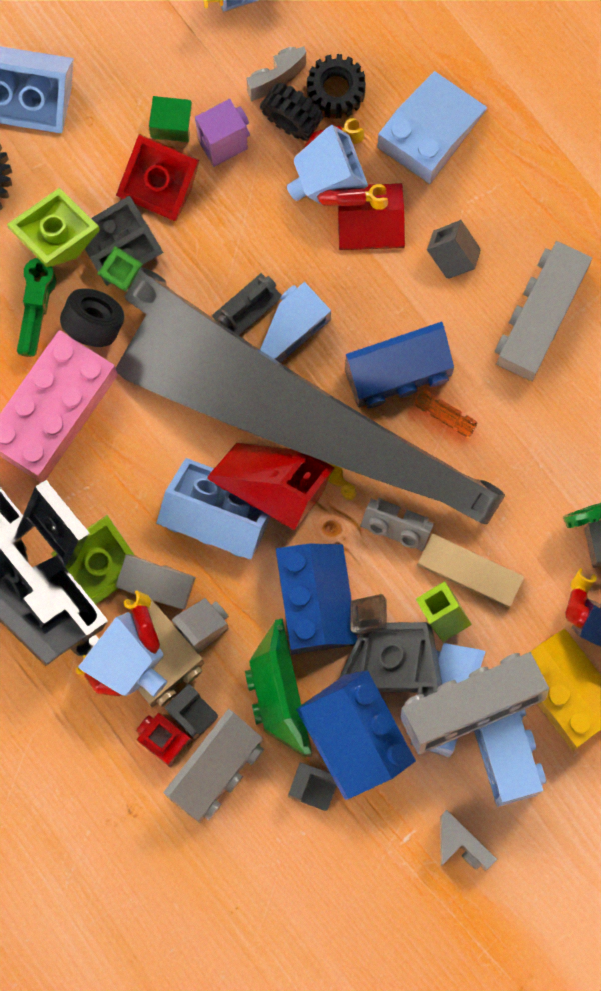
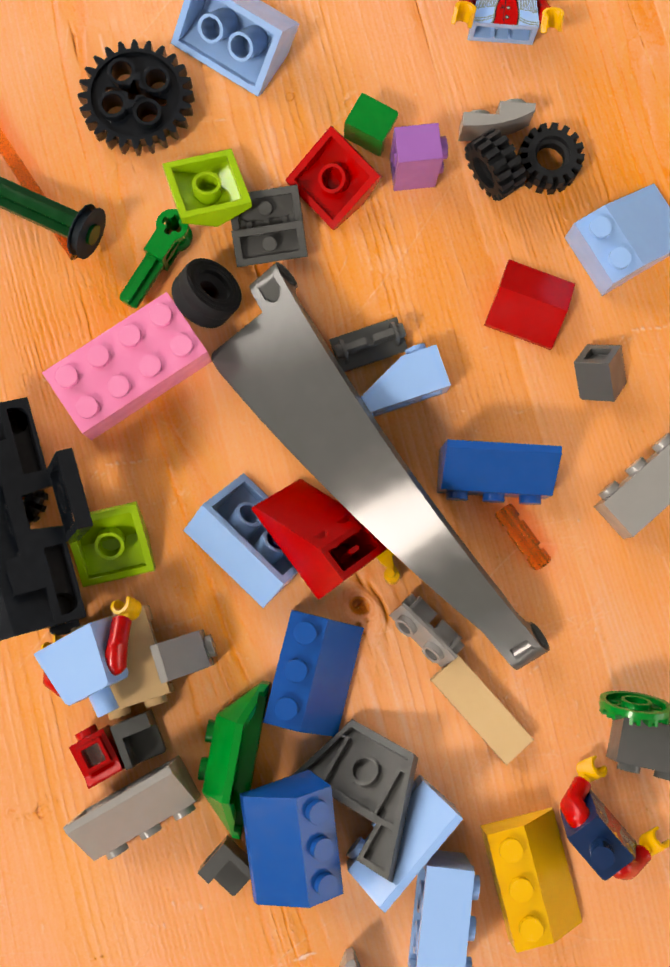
camera: 15 degrees right, 5 degrees up
(120, 268) = (256, 255): bright green tile -> none
(157, 581) = (157, 590): light grey slope -> none
(332, 171) = (511, 242): light blue torso -> none
(368, 614) = (359, 714): clear smoke tile -> none
(443, 611) = (436, 745): lime brick -> none
(473, 702) = (428, 878): light grey brick -> none

